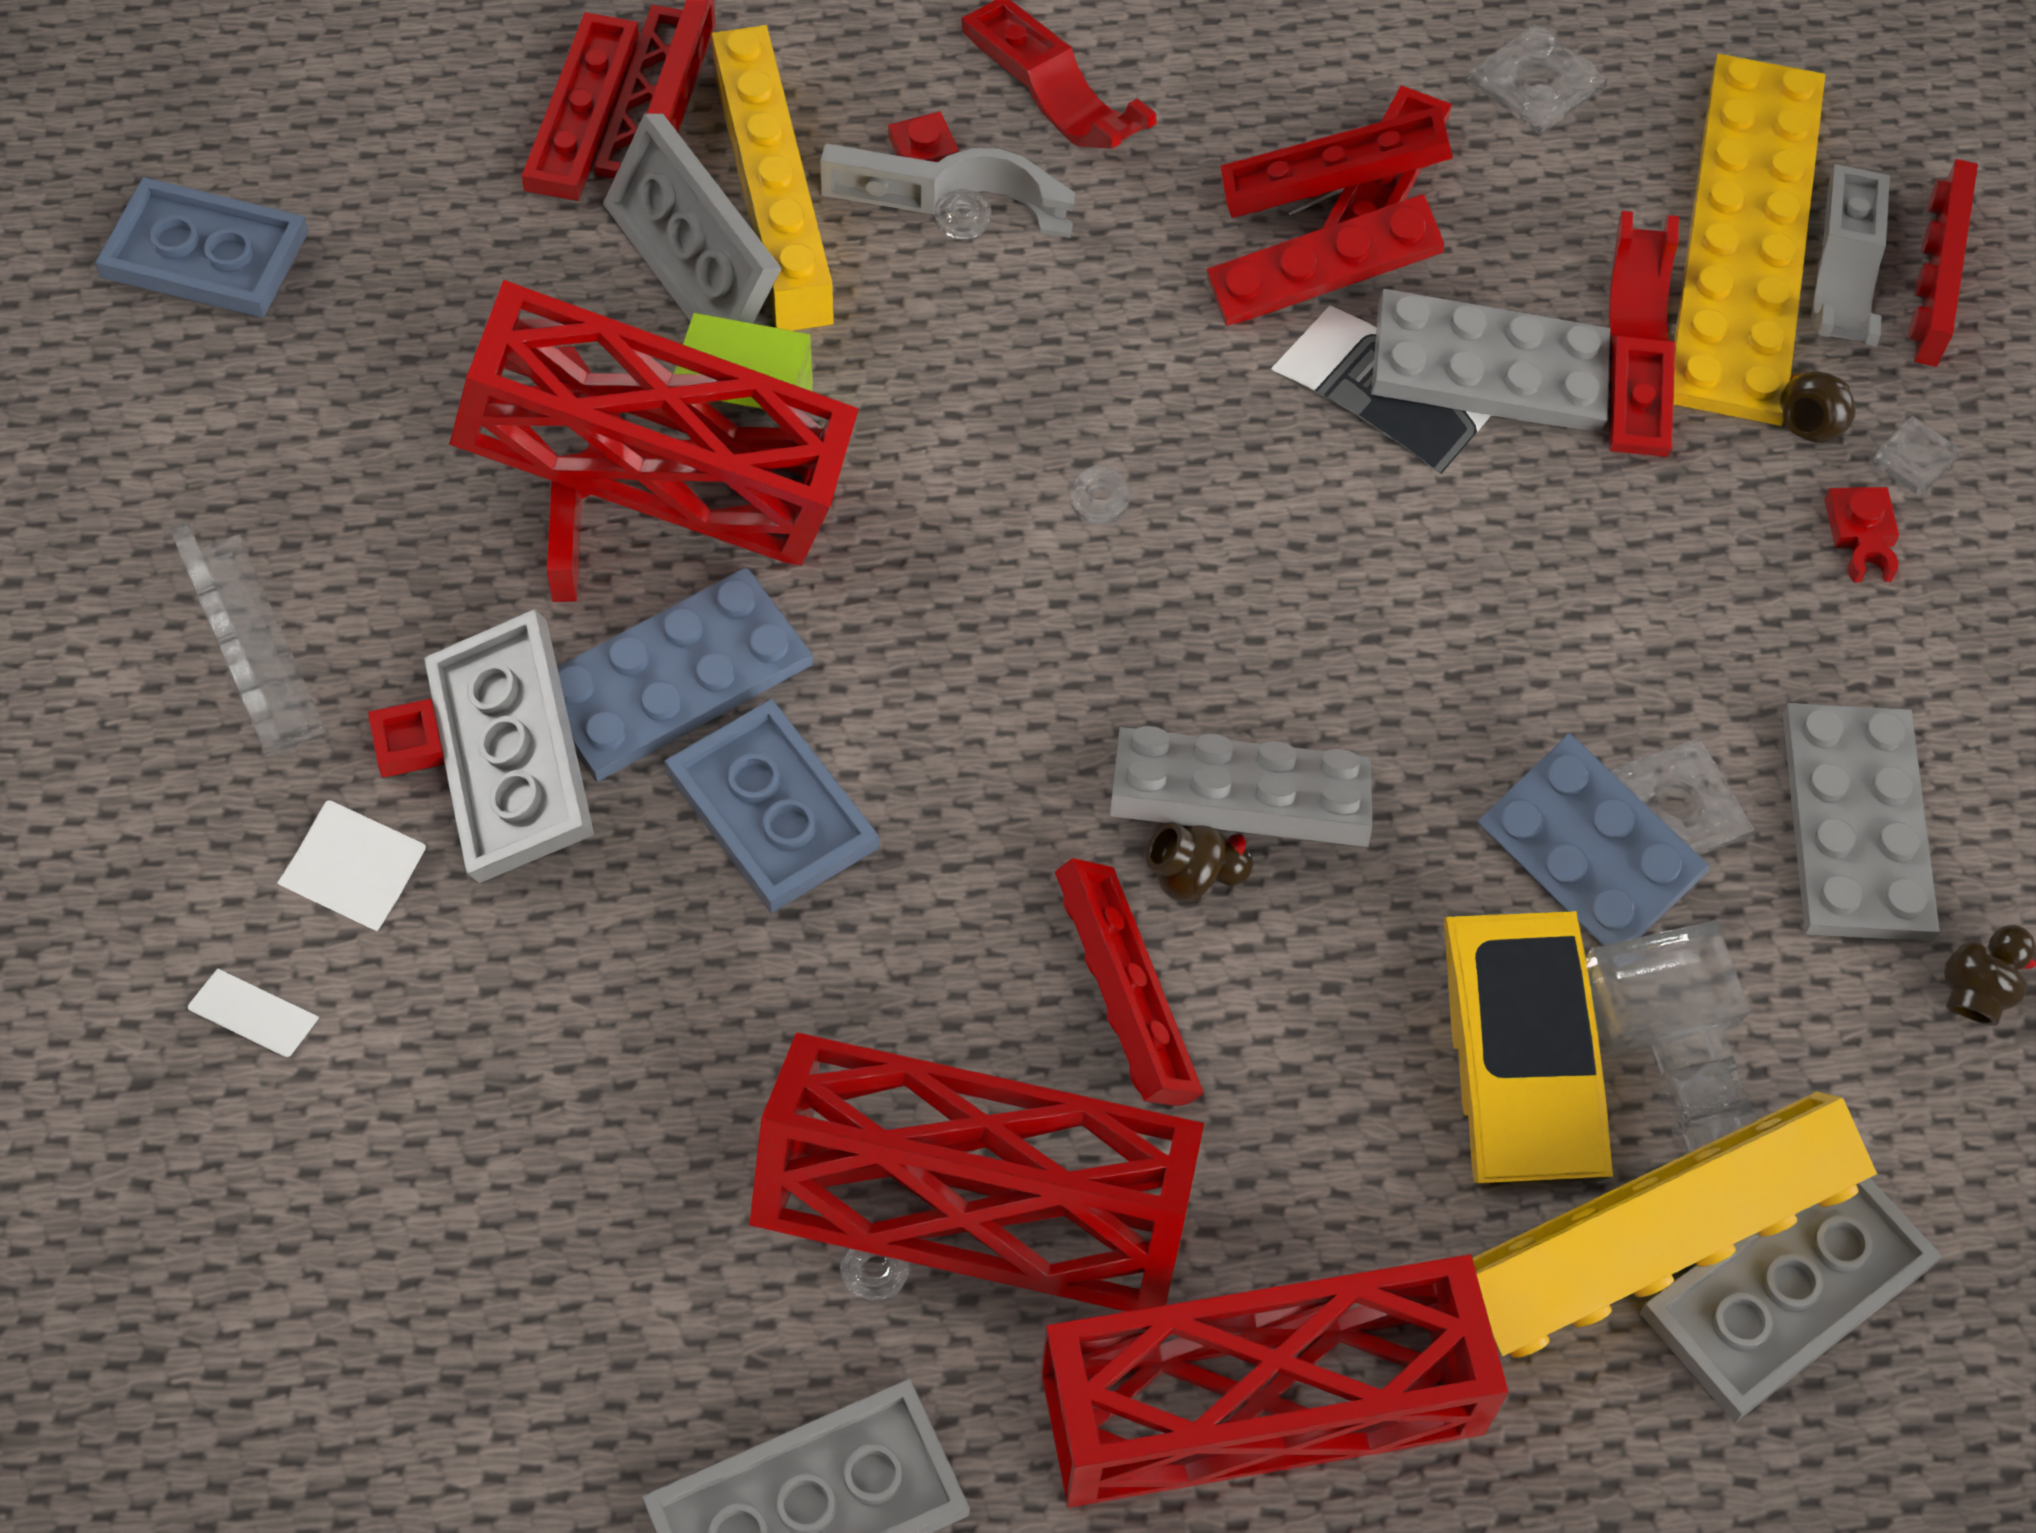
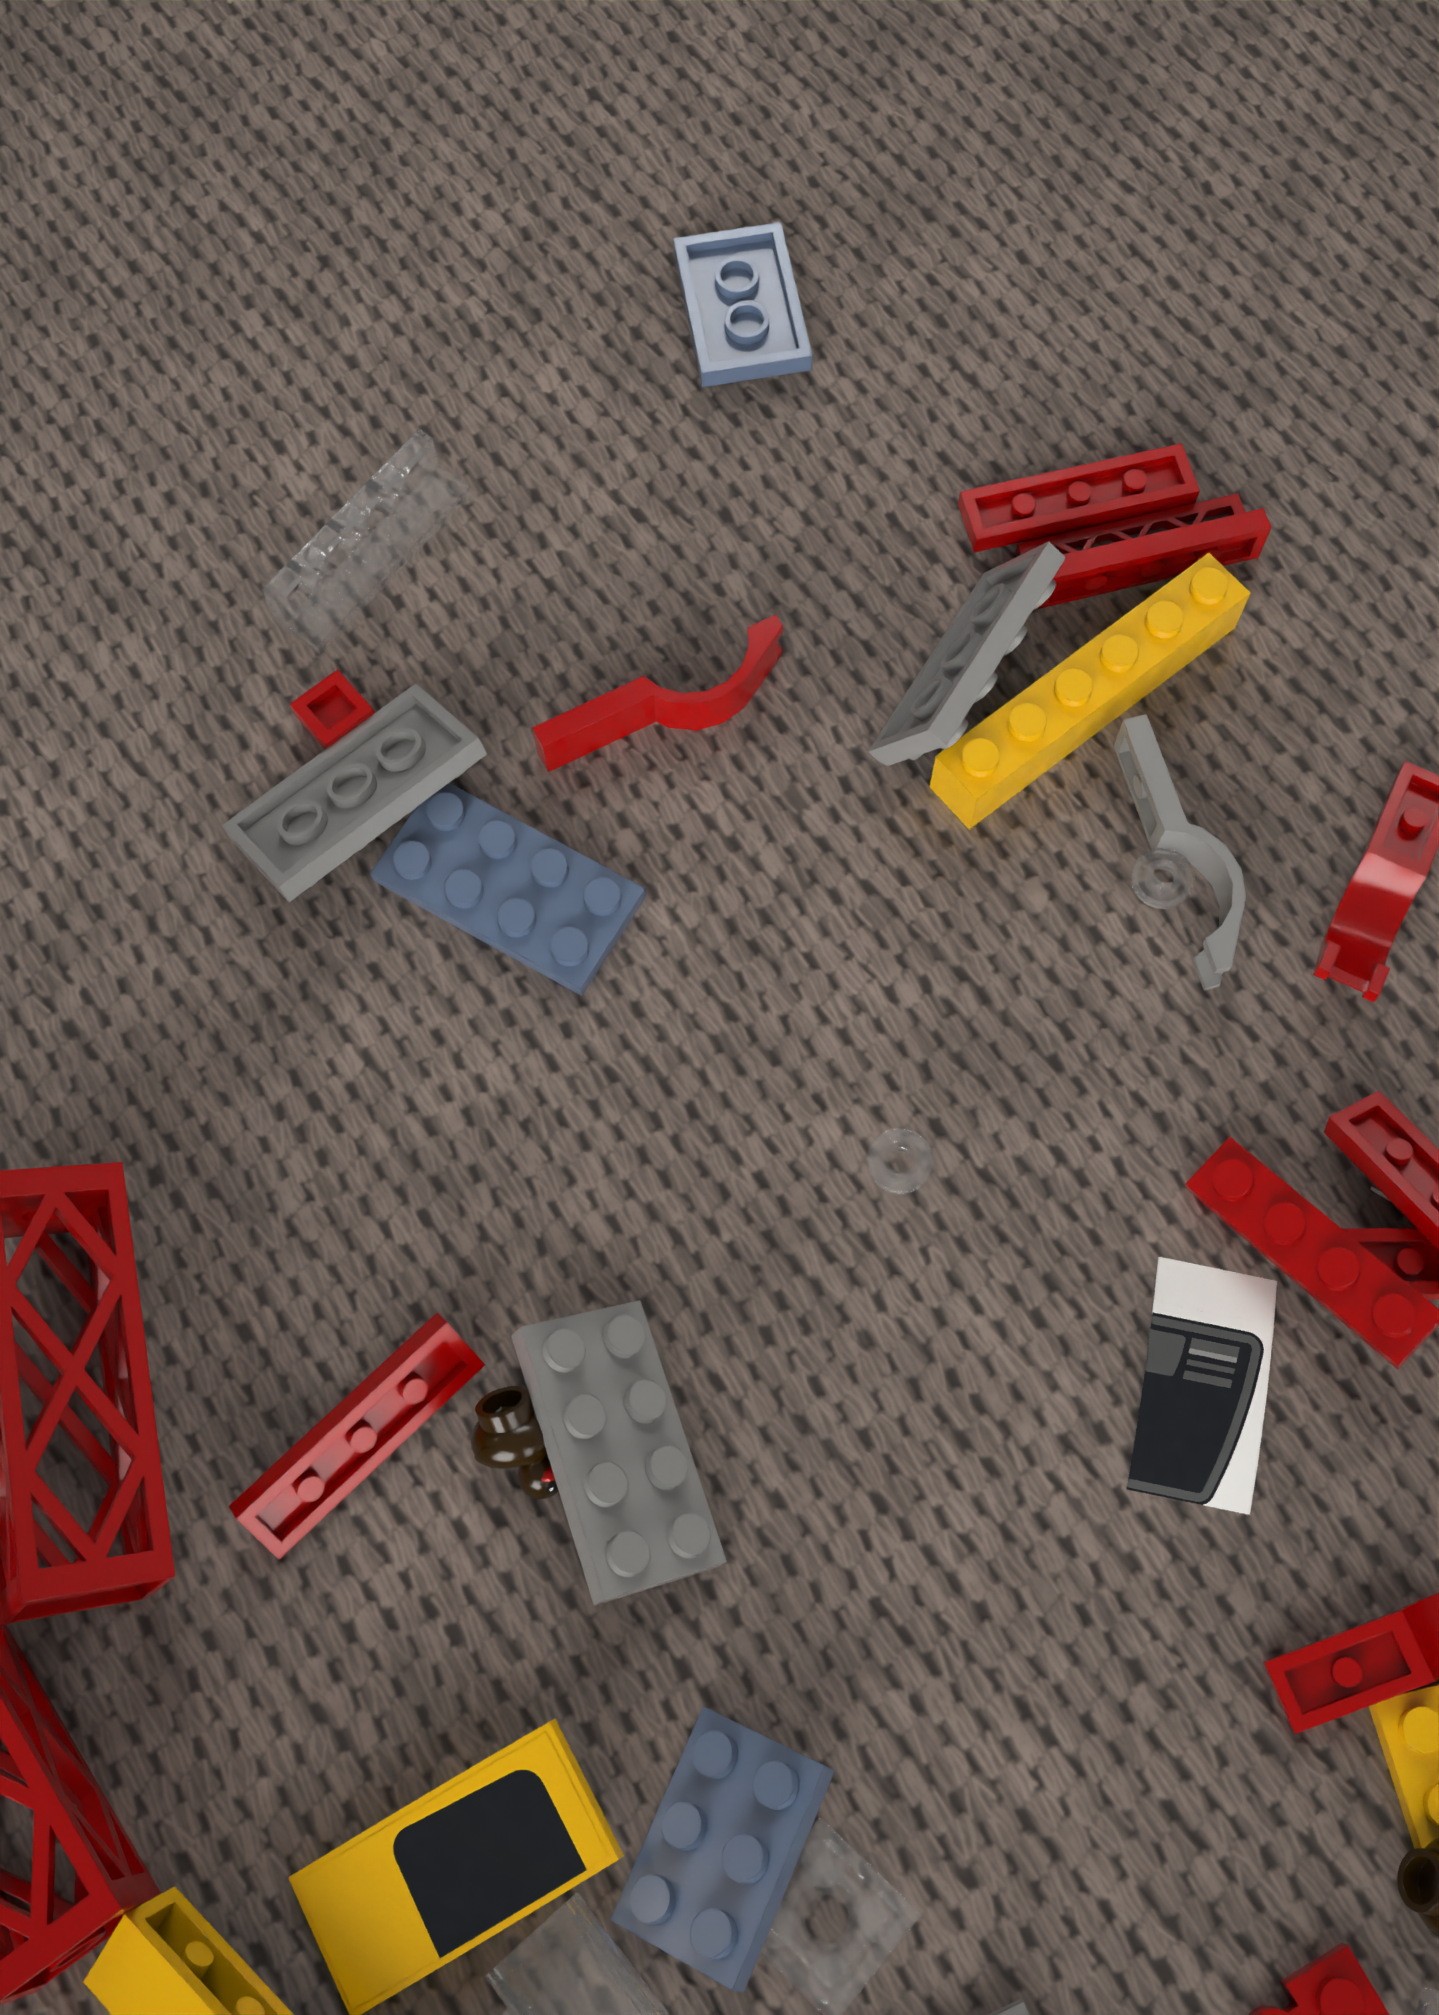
camera: 70 degrees right, 10 degrees up
(343, 865) = (198, 740): white sticker -> none
(631, 452) = (682, 838): red piece -> none
(754, 346) = (831, 776): lime slope -> none
(772, 805) = (405, 1033): sand blue plate -> none
(922, 138) = (1228, 803): red plate -> none
(1491, 361) = (1298, 1486): light grey plate -> none

